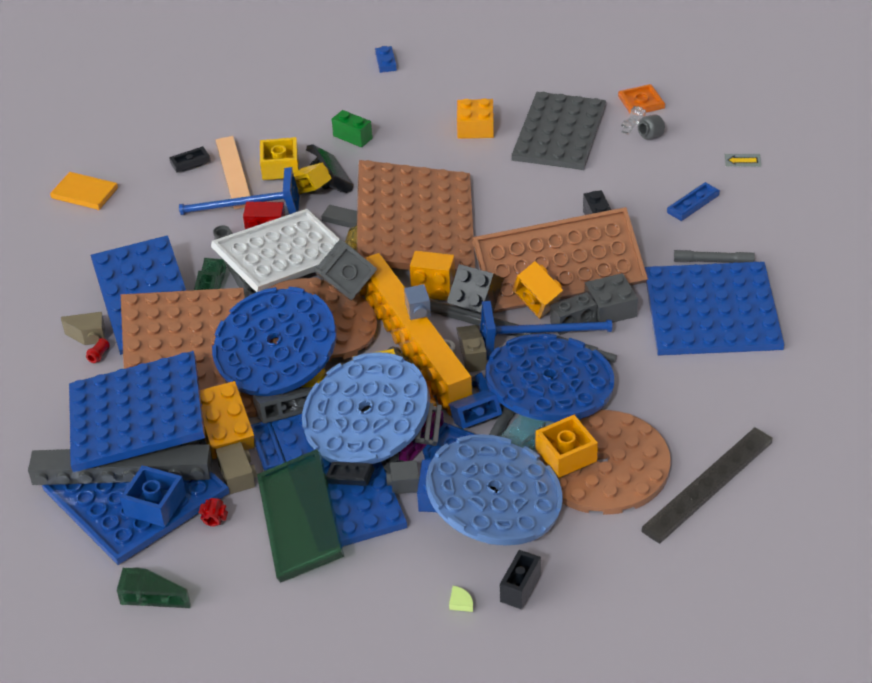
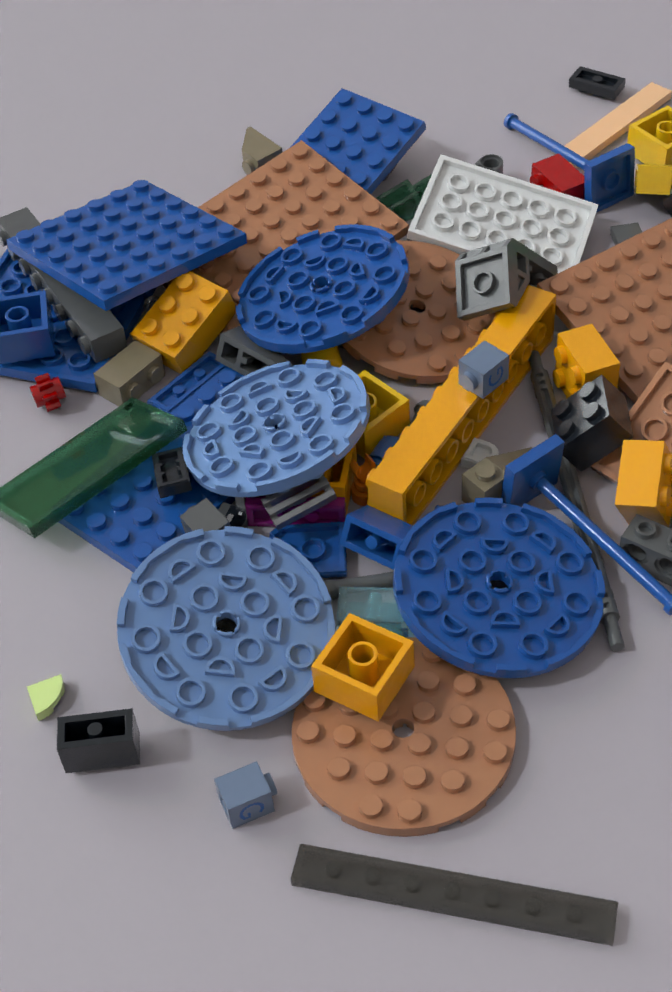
camera: 60 degrees right, 5 degrees up
(84, 190) = (472, 45): light orange tile -> none
(95, 354) = (228, 180): red pin -> none
(598, 535) = (246, 794): none -> sand blue brick

